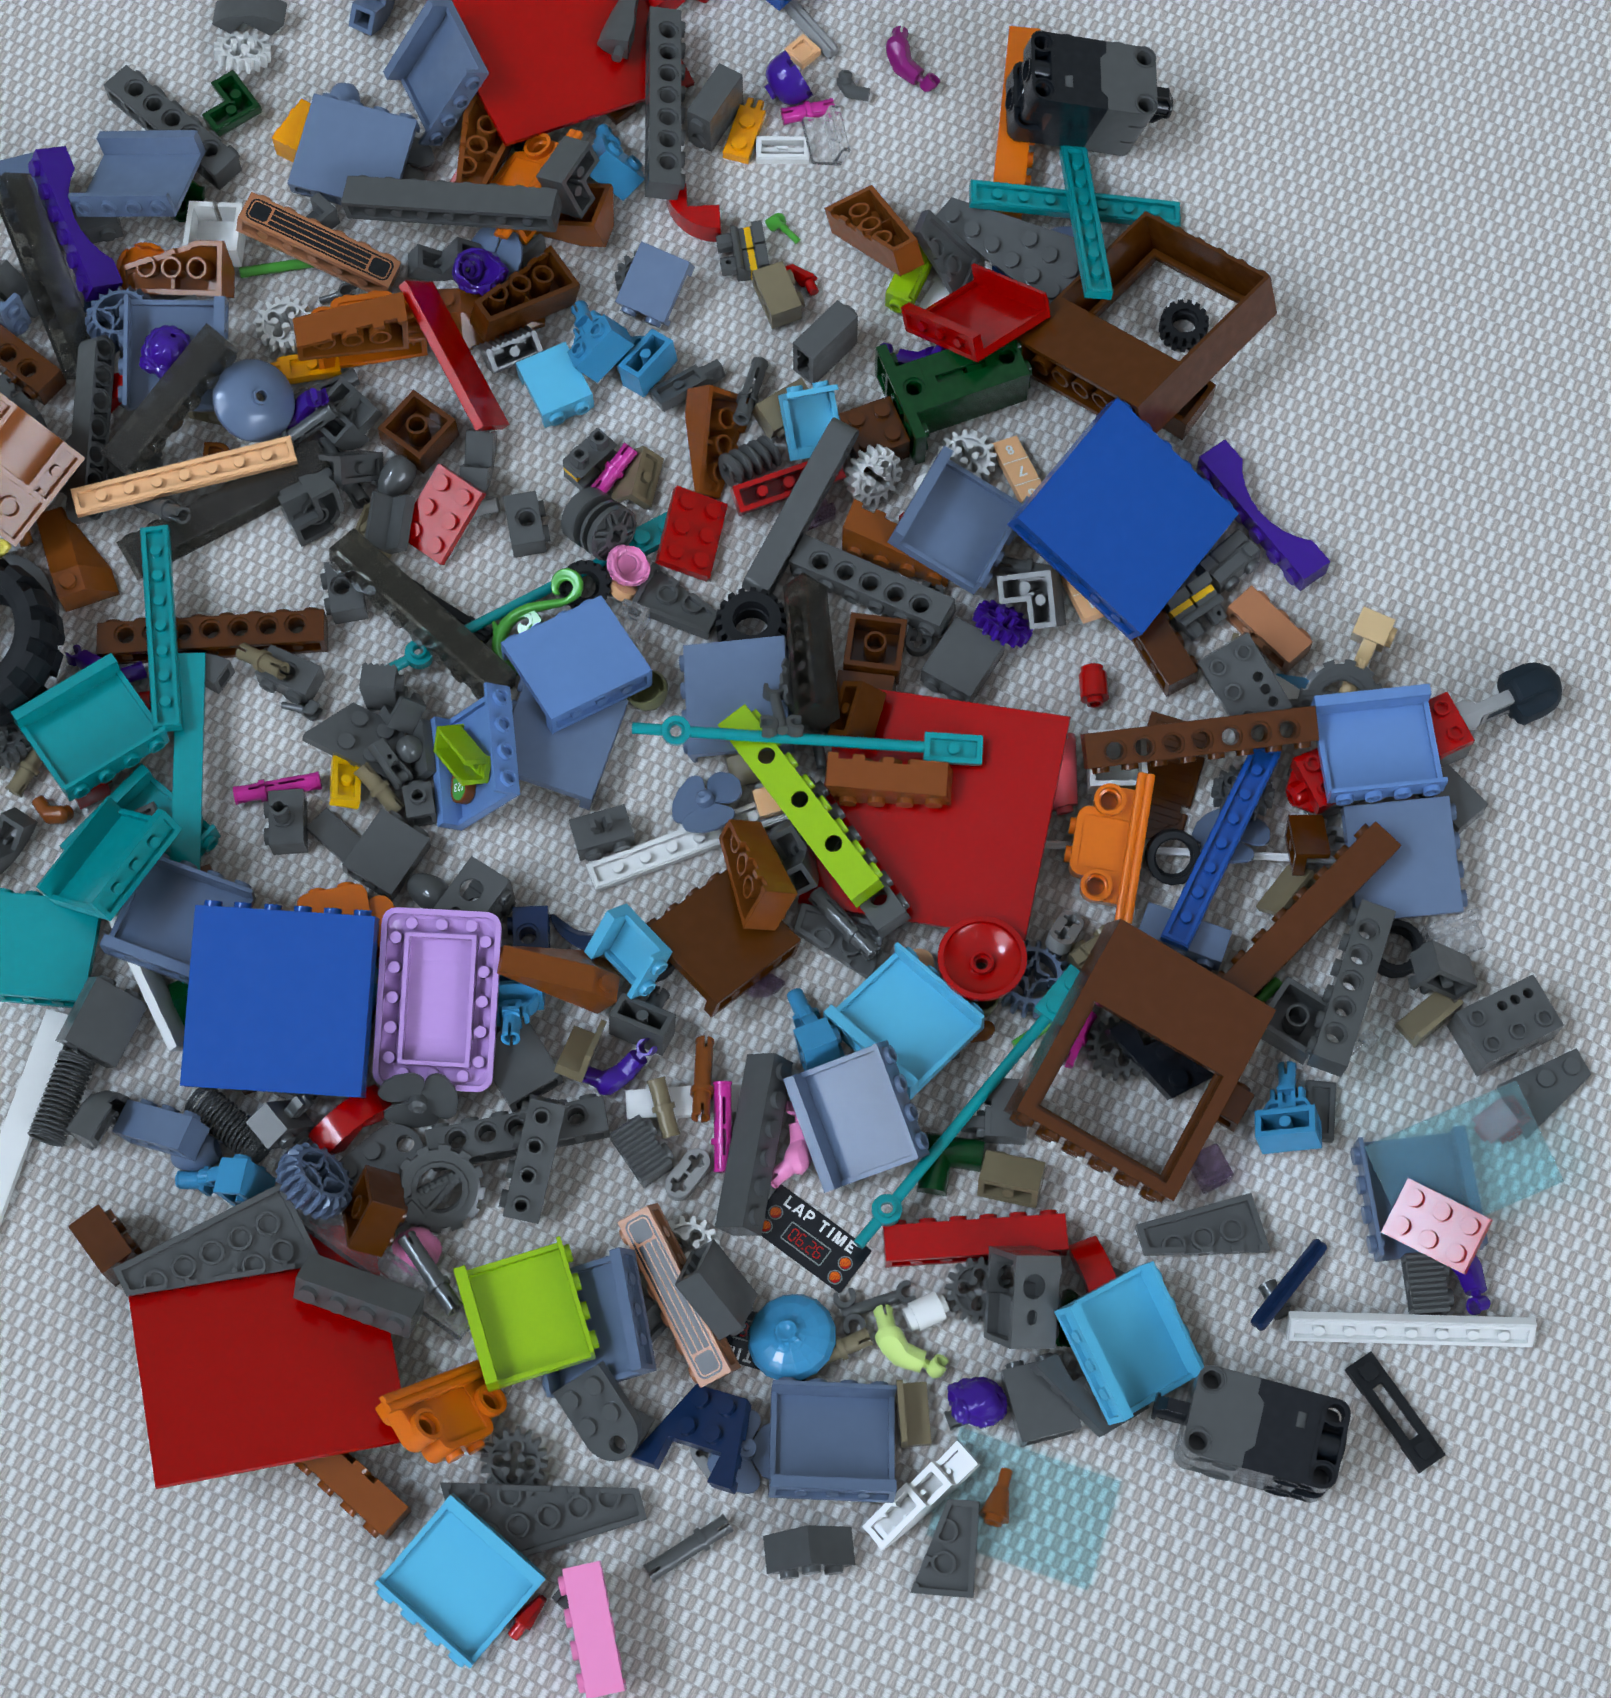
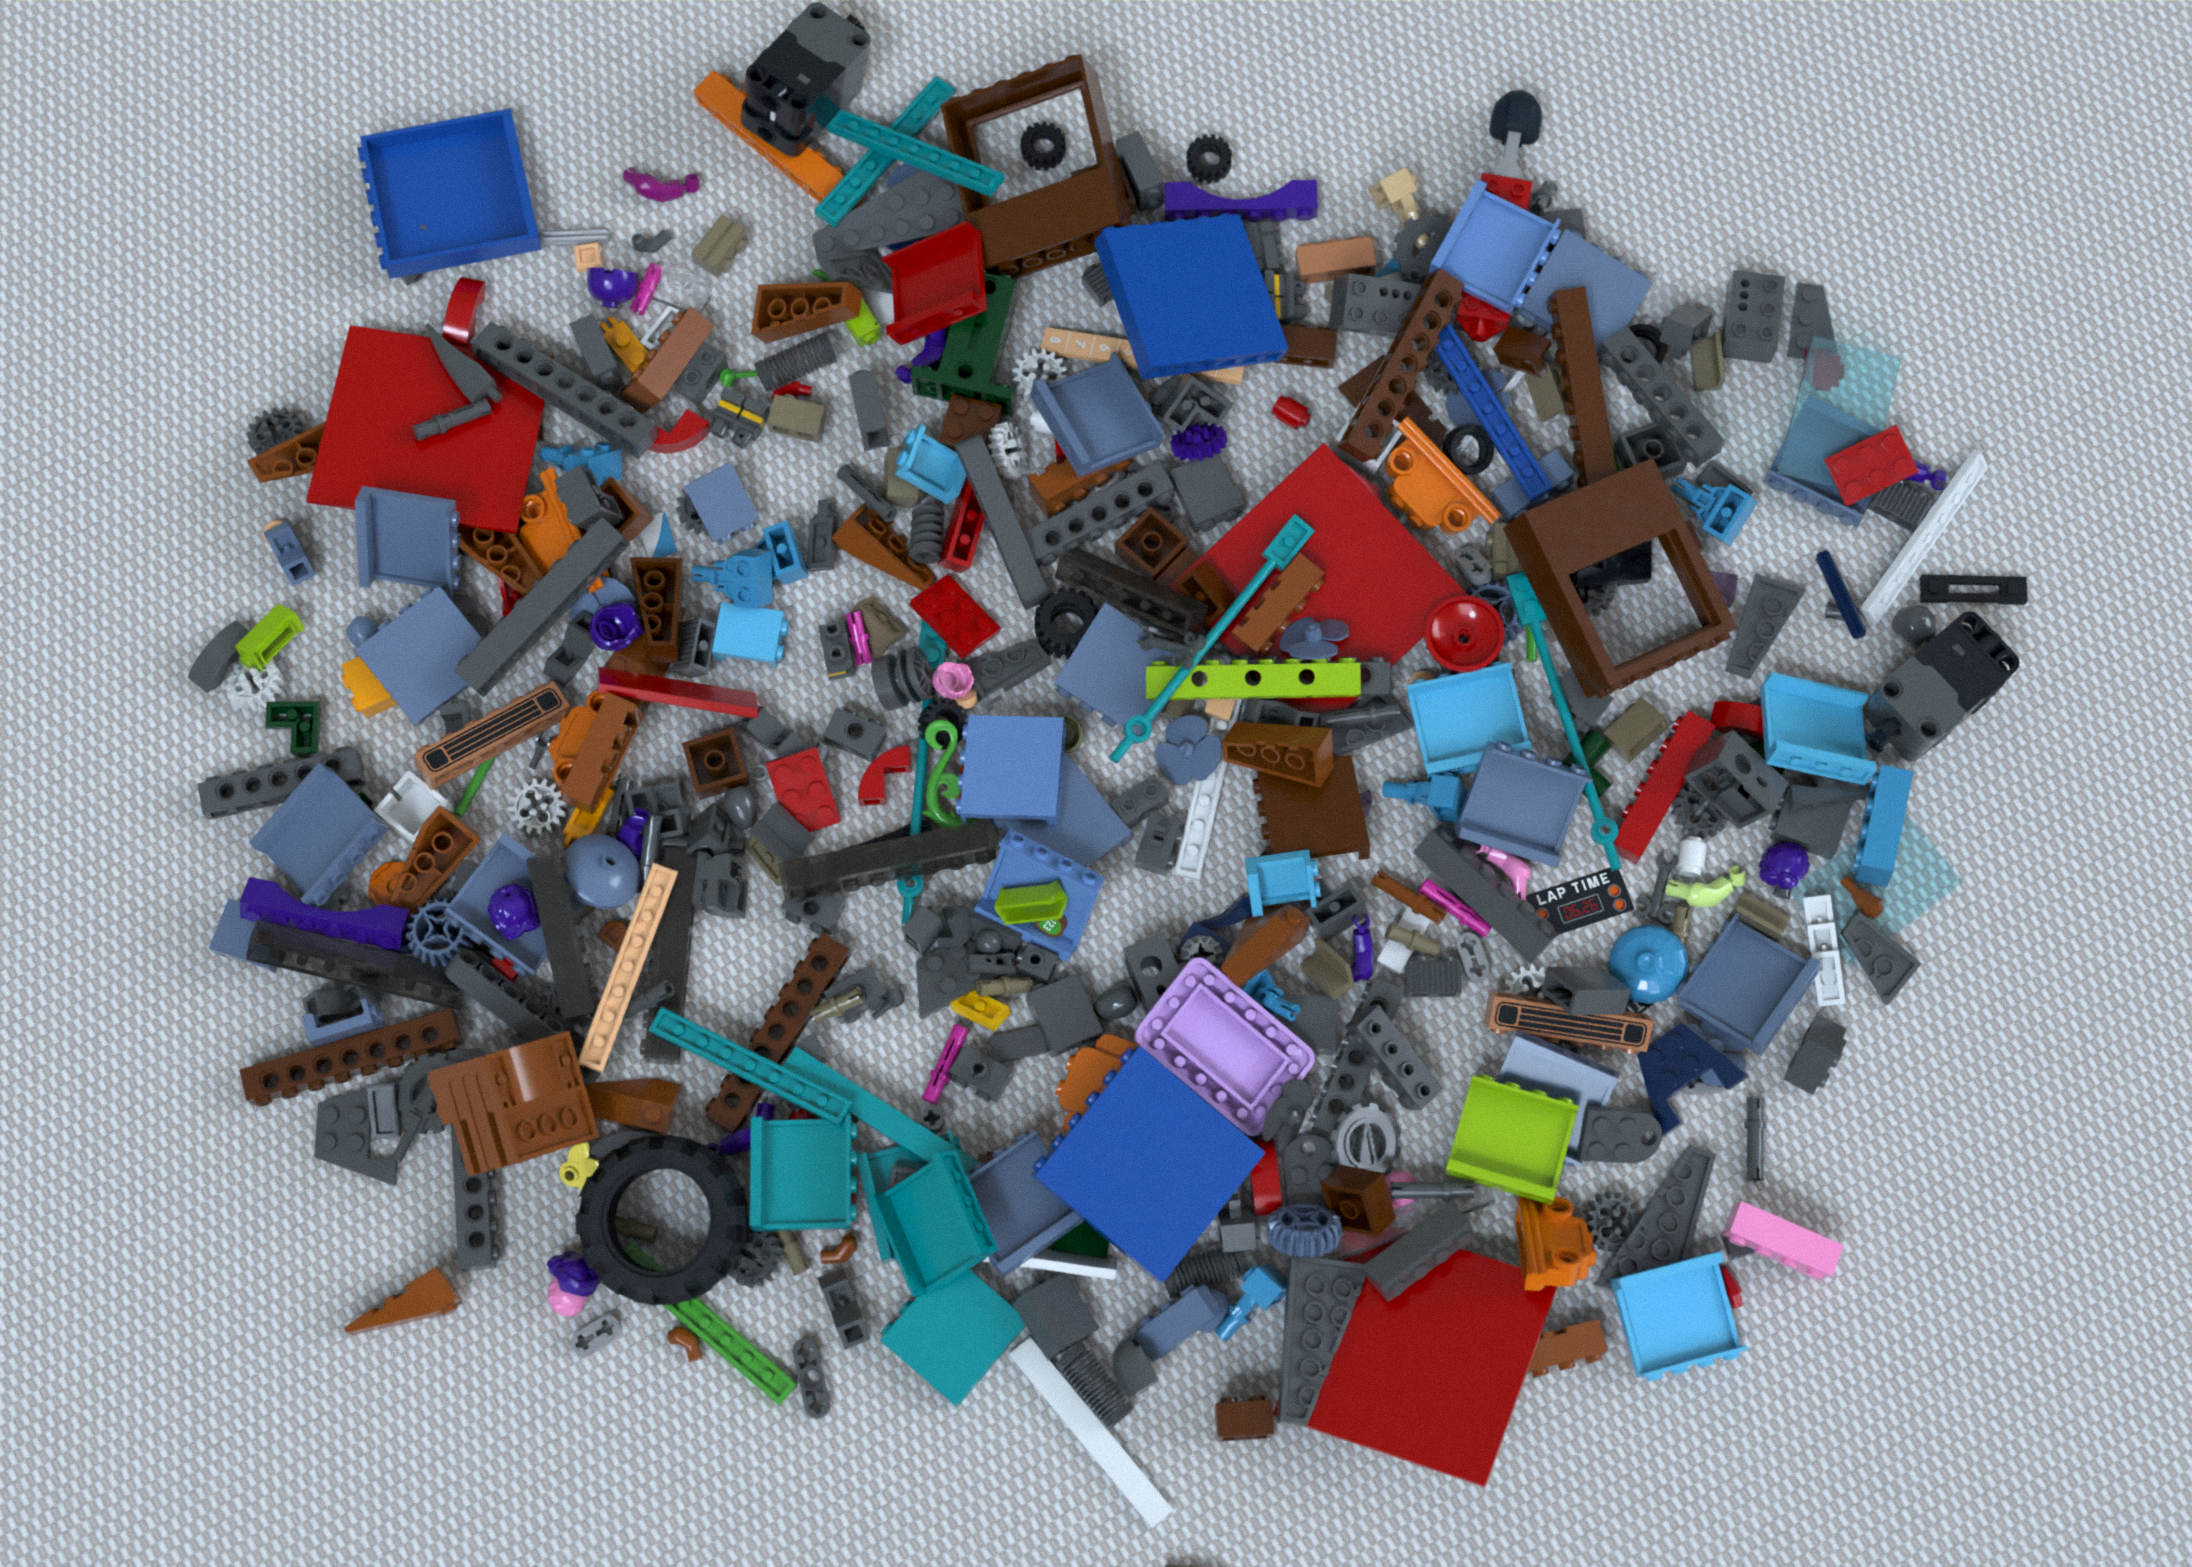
camera: 55 degrees left, 5 degrees up
(216, 817) = (925, 1116): none -> dark grey bush
(287, 34) = (268, 637): none -> lime window
(495, 565) = (872, 785): none -> red brick
(530, 928) = (1208, 945): none -> light grey gear
(564, 32) = (457, 417): none -> dark grey pin
(594, 263) = (658, 537): none -> sticker
(636, 792) = (1140, 801): none -> dark grey brick
(753, 161) = (667, 360): none -> dark orange wedge
(761, 197) = (701, 374): none -> dark grey brick
(858, 274) = (764, 372): none -> dark grey piece
(873, 828) = (1306, 638): none -> sand blue piece
(888, 139) = (720, 246): none -> dark tan brick
(1081, 1469) = (1884, 824): none -> dark azure brick
(1218, 412) = (1140, 171): none -> dark grey brick
(1283, 450) = (1213, 145): none -> black tyre
(1315, 1374) = (1915, 624): none -> dark grey hair
(1470, 764) = (1542, 198): none -> dark grey pin

